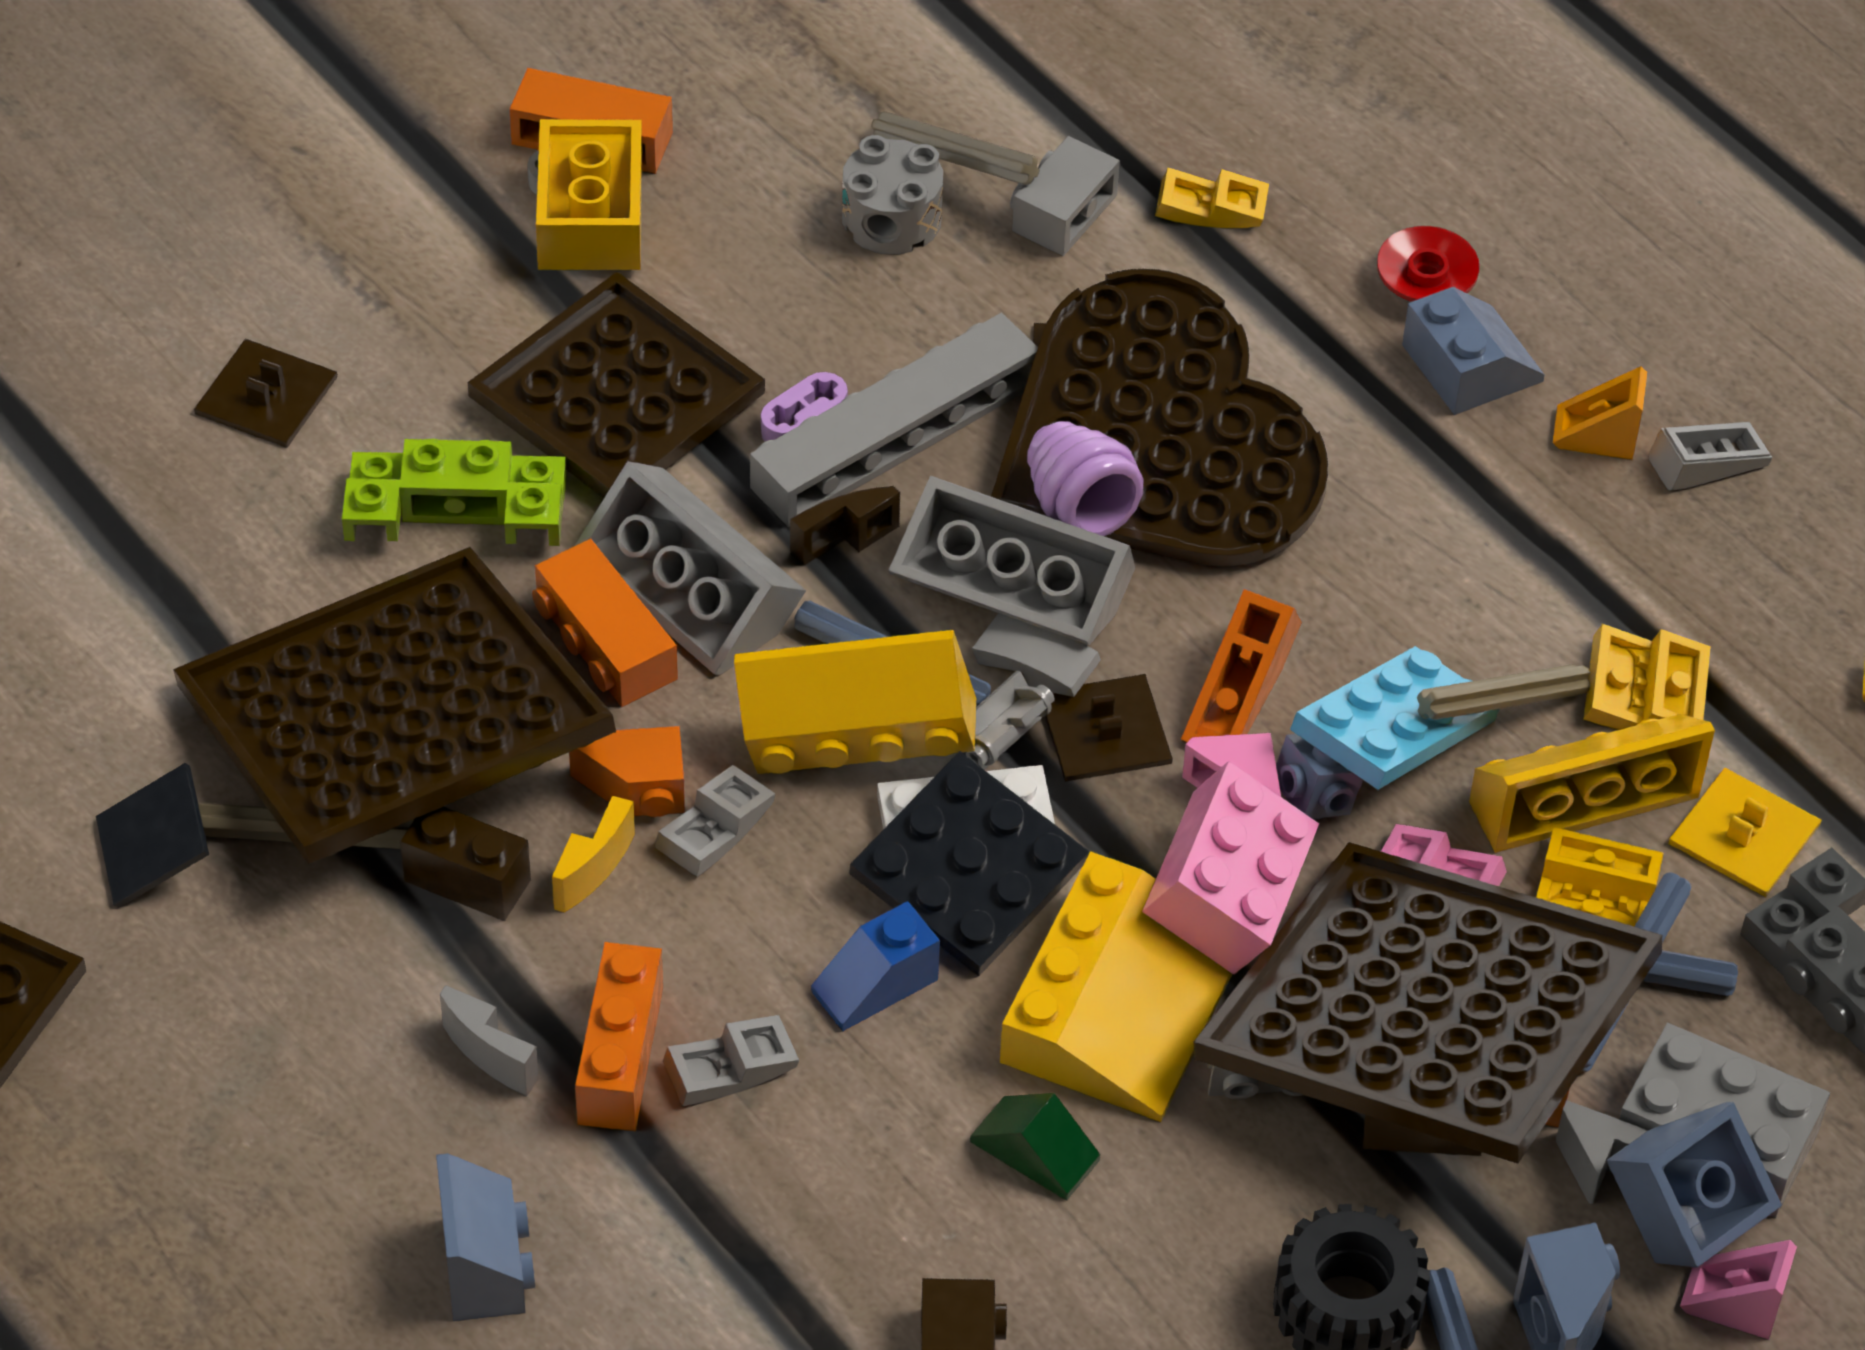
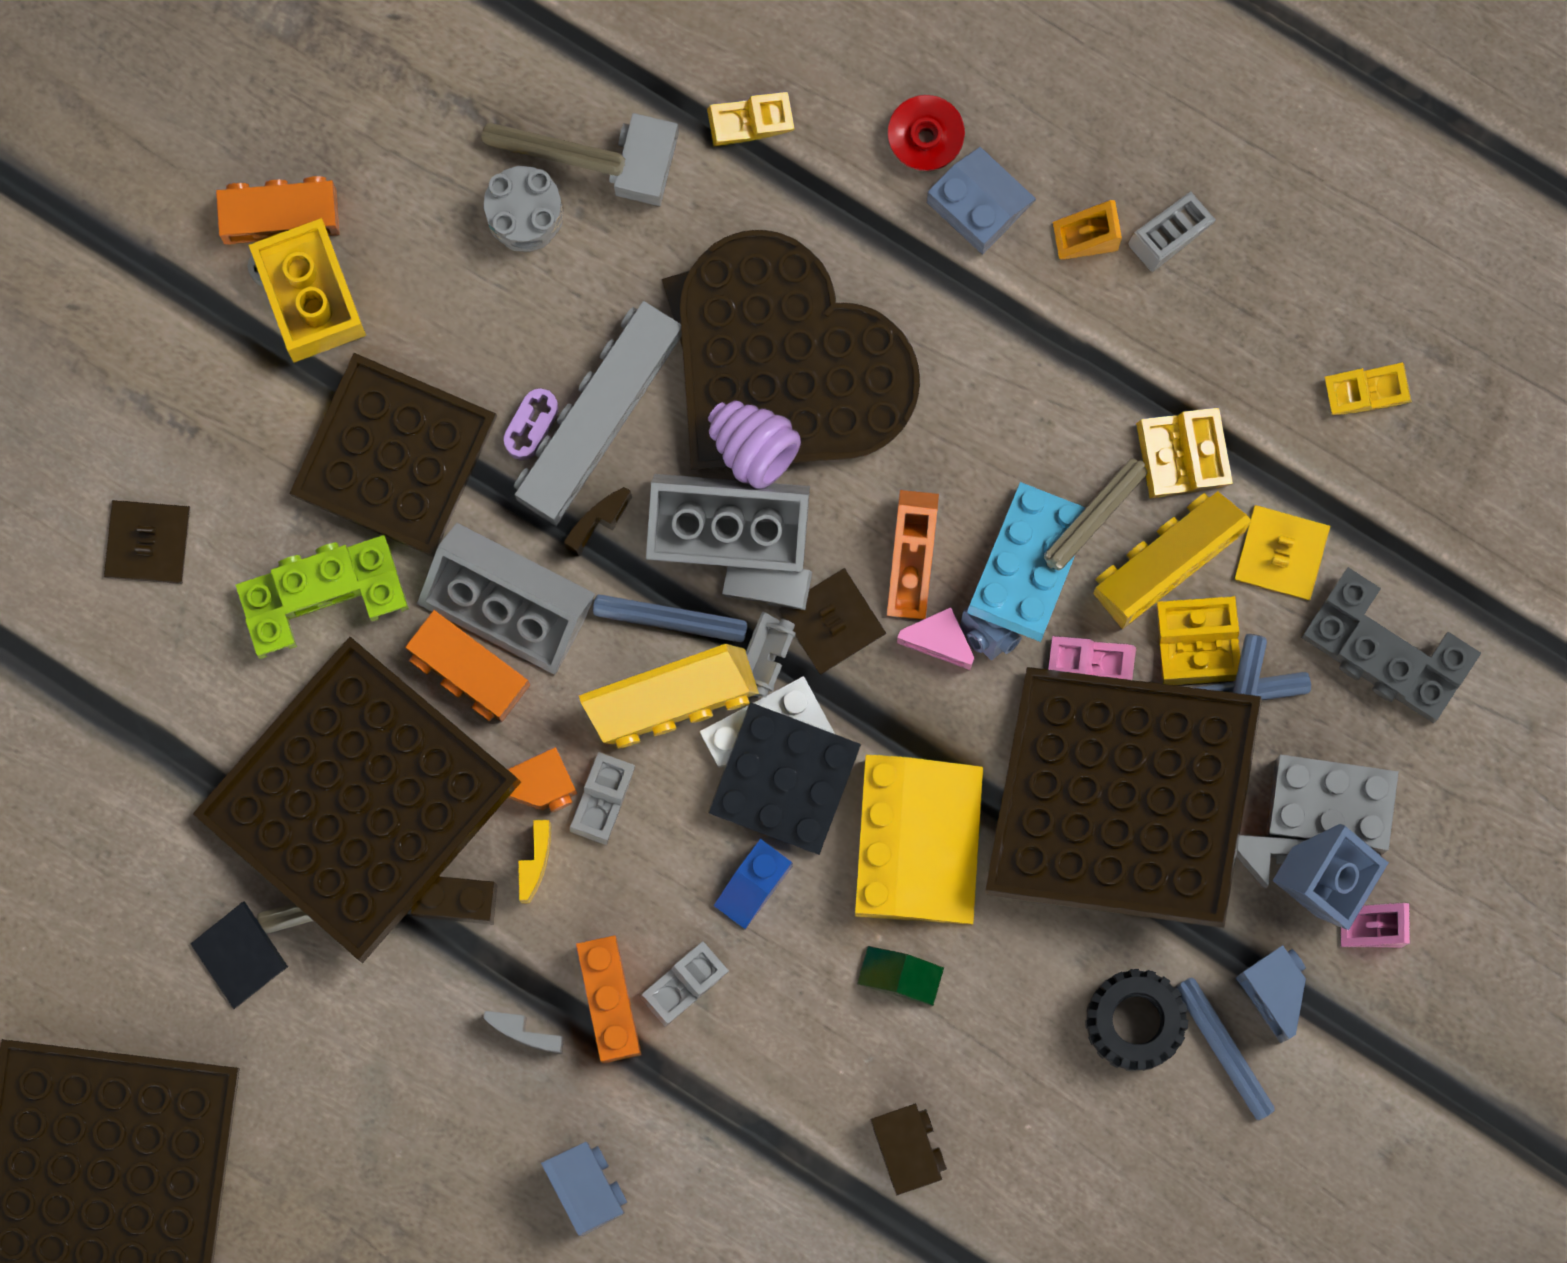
camera: 15 degrees left, 30 degrees up
(1231, 868) = (961, 731): bright pink brick -> none

